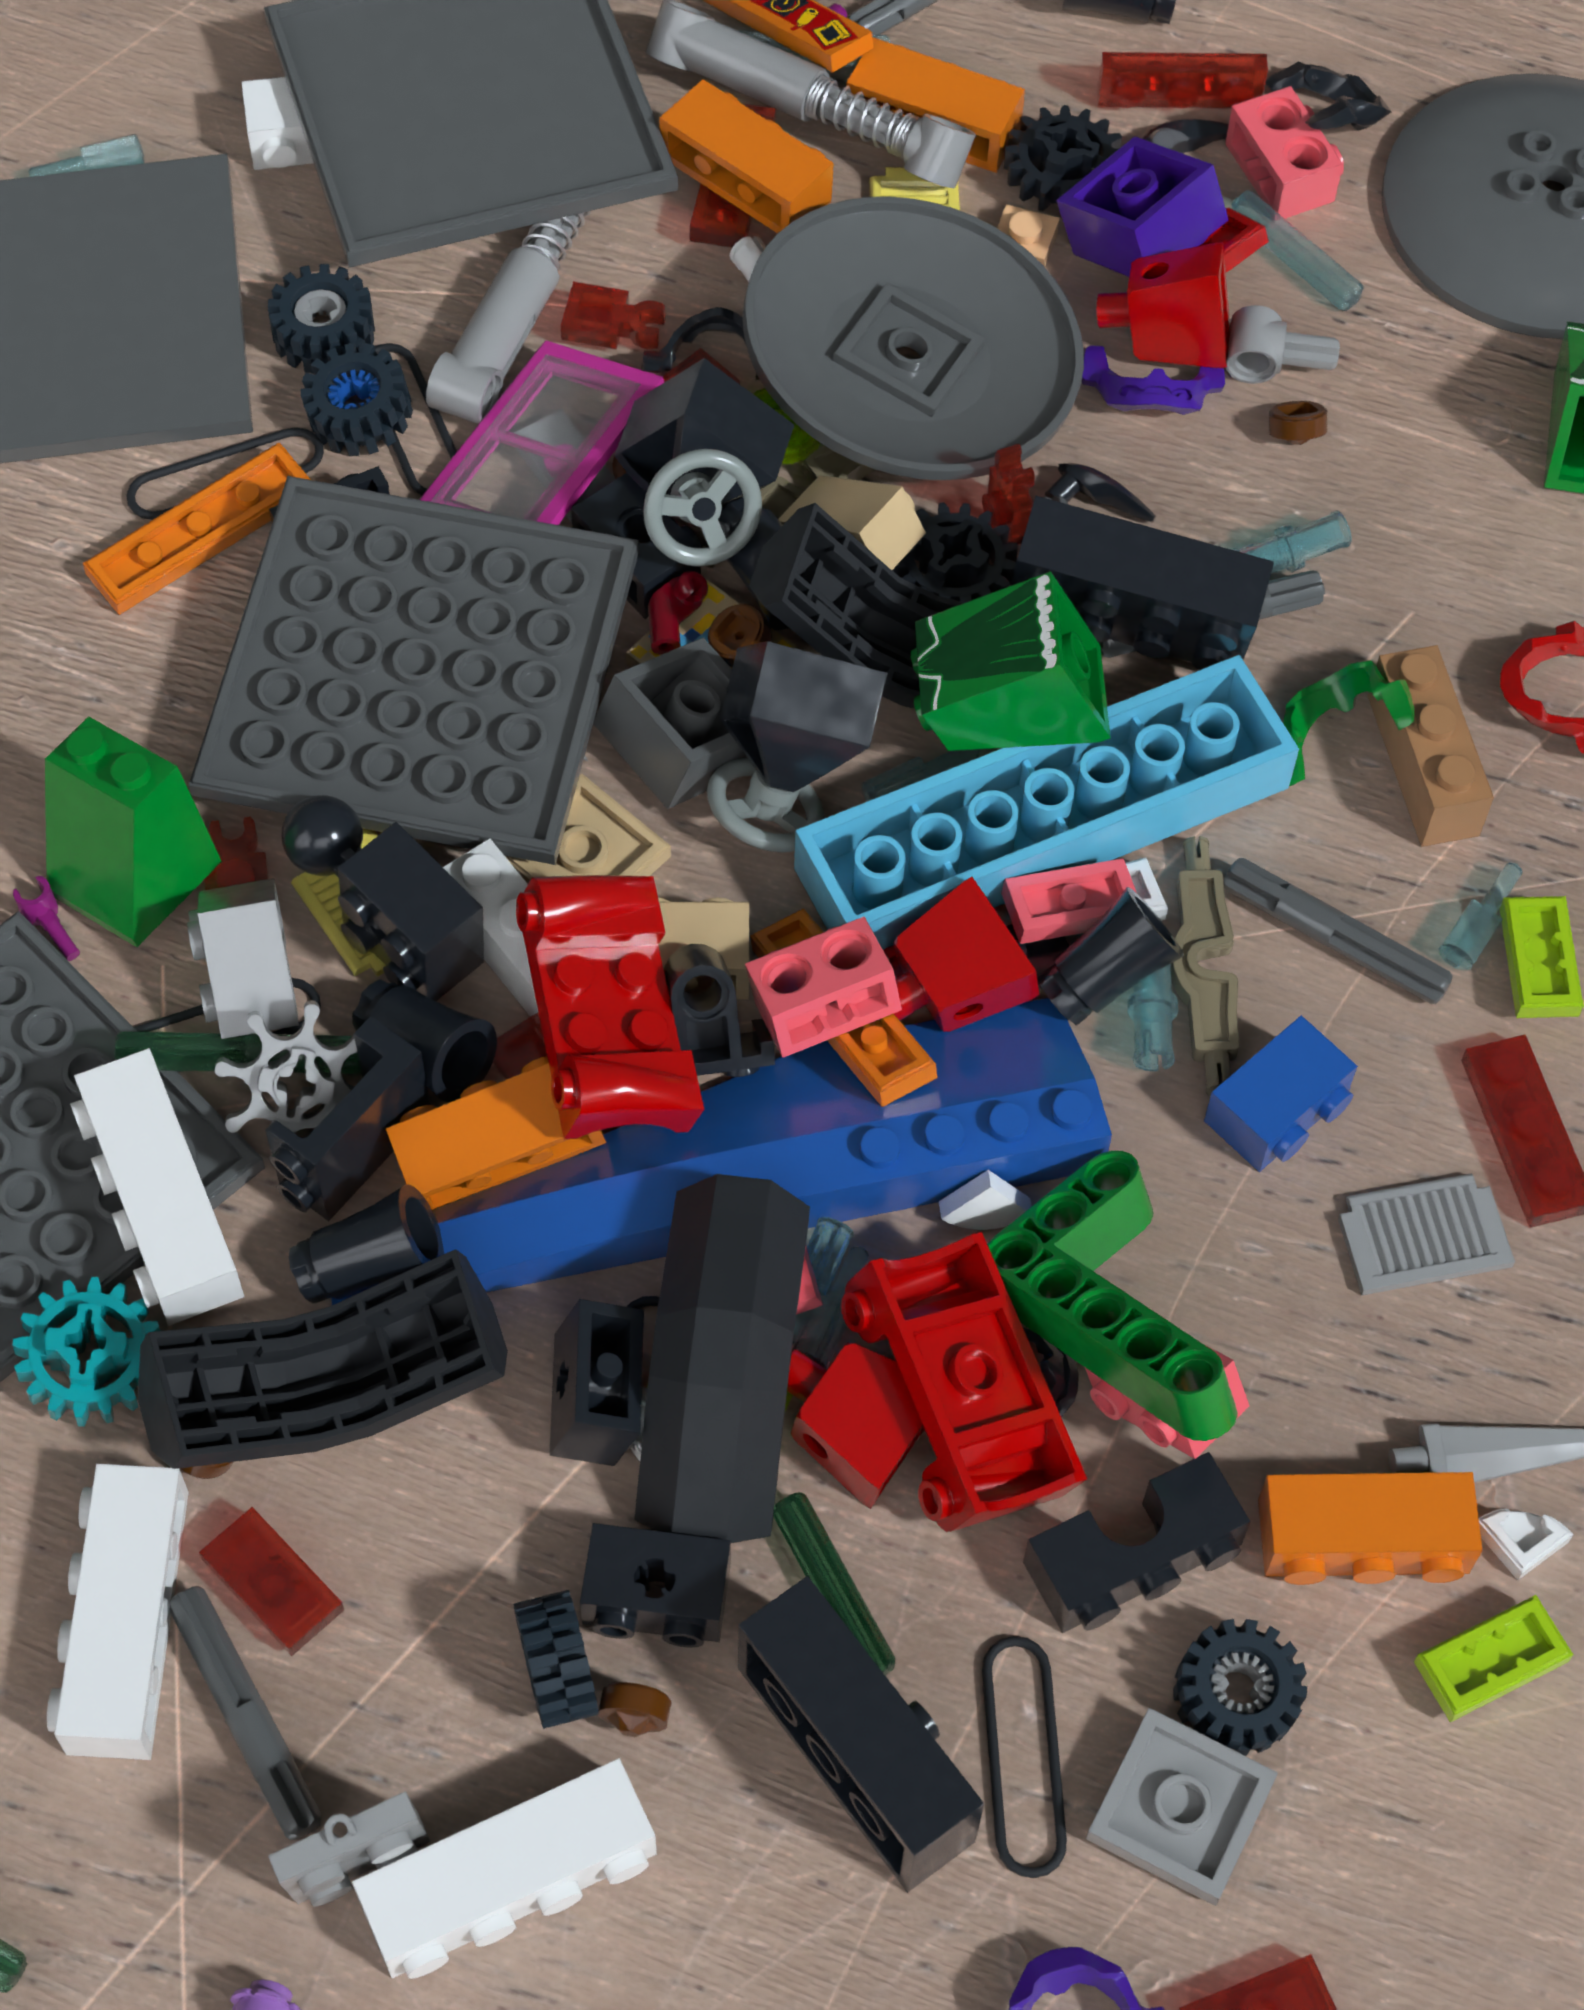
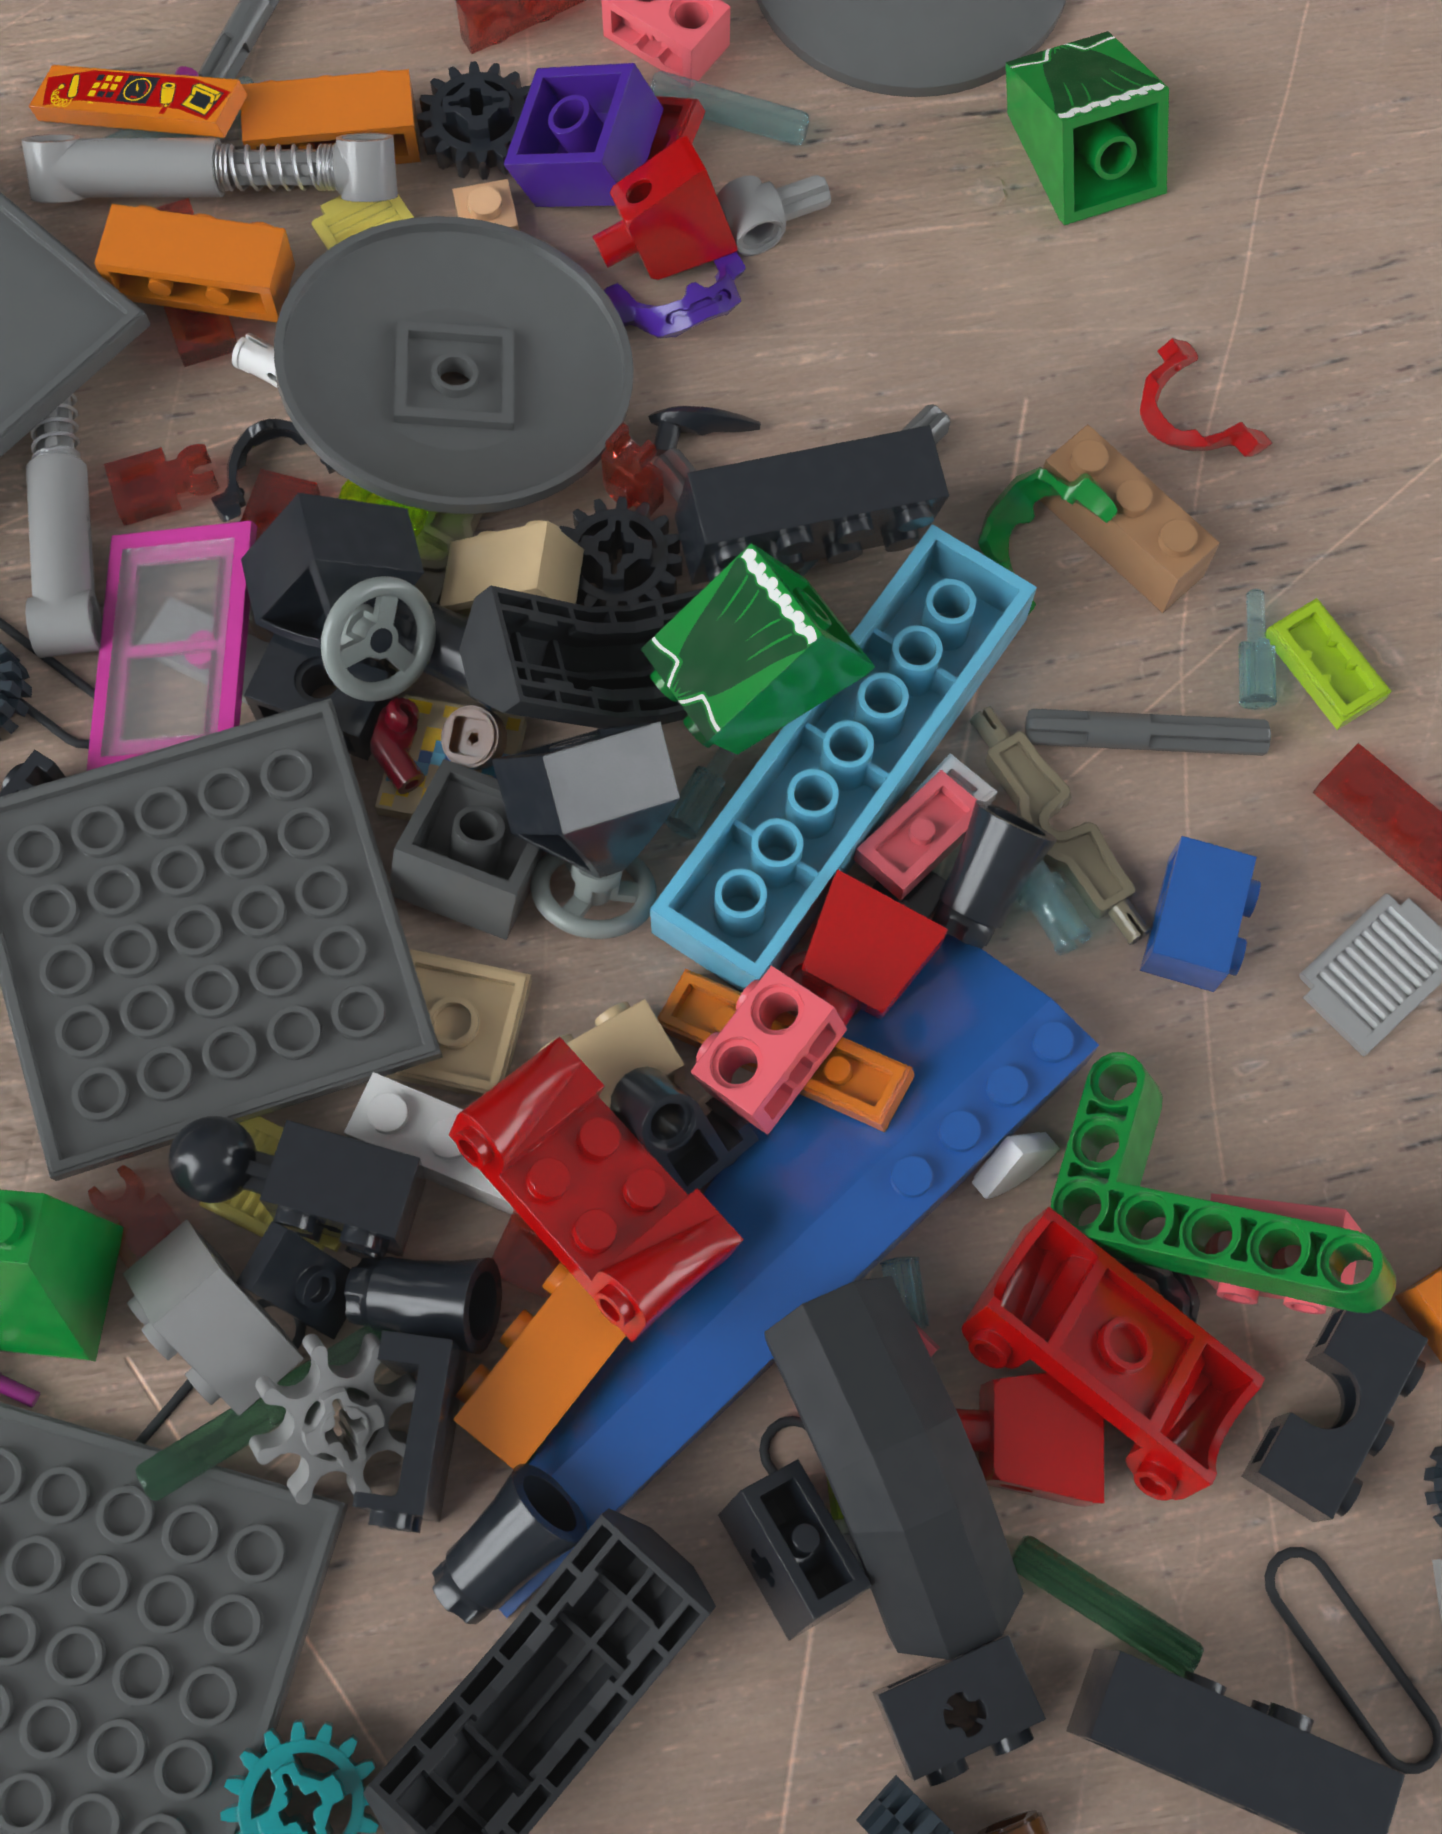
camera: 30 degrees left, 10 degrees up
(158, 1188) = (269, 1605): white brick -> none
(330, 962) = (298, 1279): none -> black plate
(825, 1323) = (952, 1356): clear light blue axle -> none
(1187, 134) = (567, 44): black bar -> none
(1295, 546) = (896, 391): clear light blue pin -> none
(1298, 421) = (829, 269): reddish brown tile -> none

